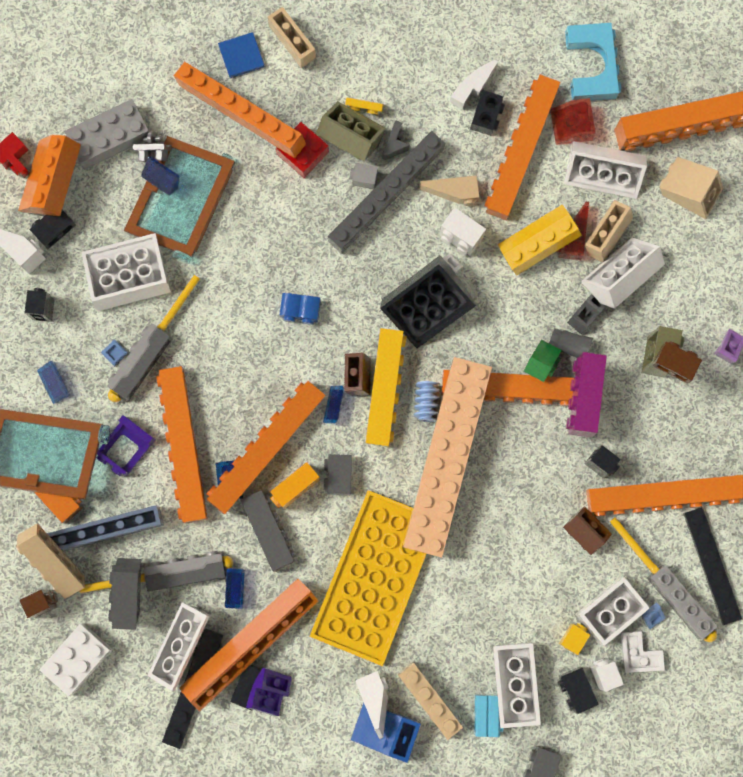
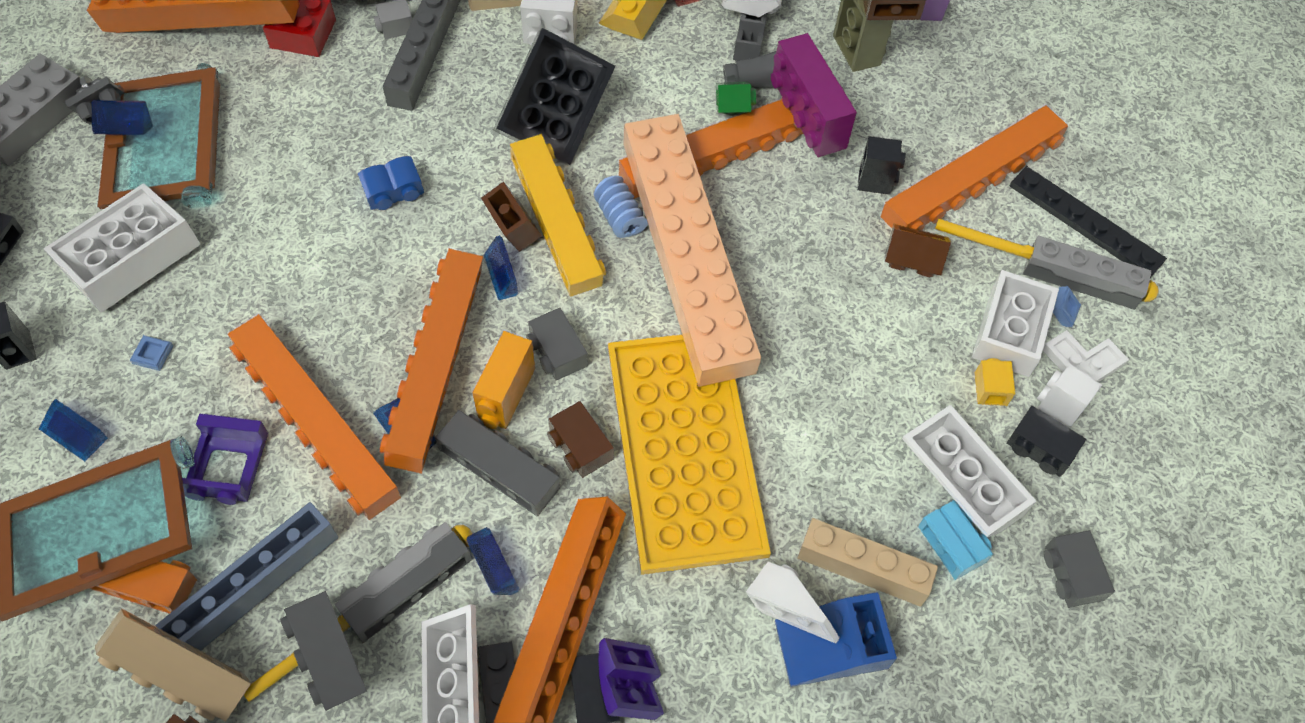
camera: 30 degrees left, 20 degrees down
(145, 353) = (197, 332): piece -> none
(319, 542) = (580, 440): none -> reddish brown brick

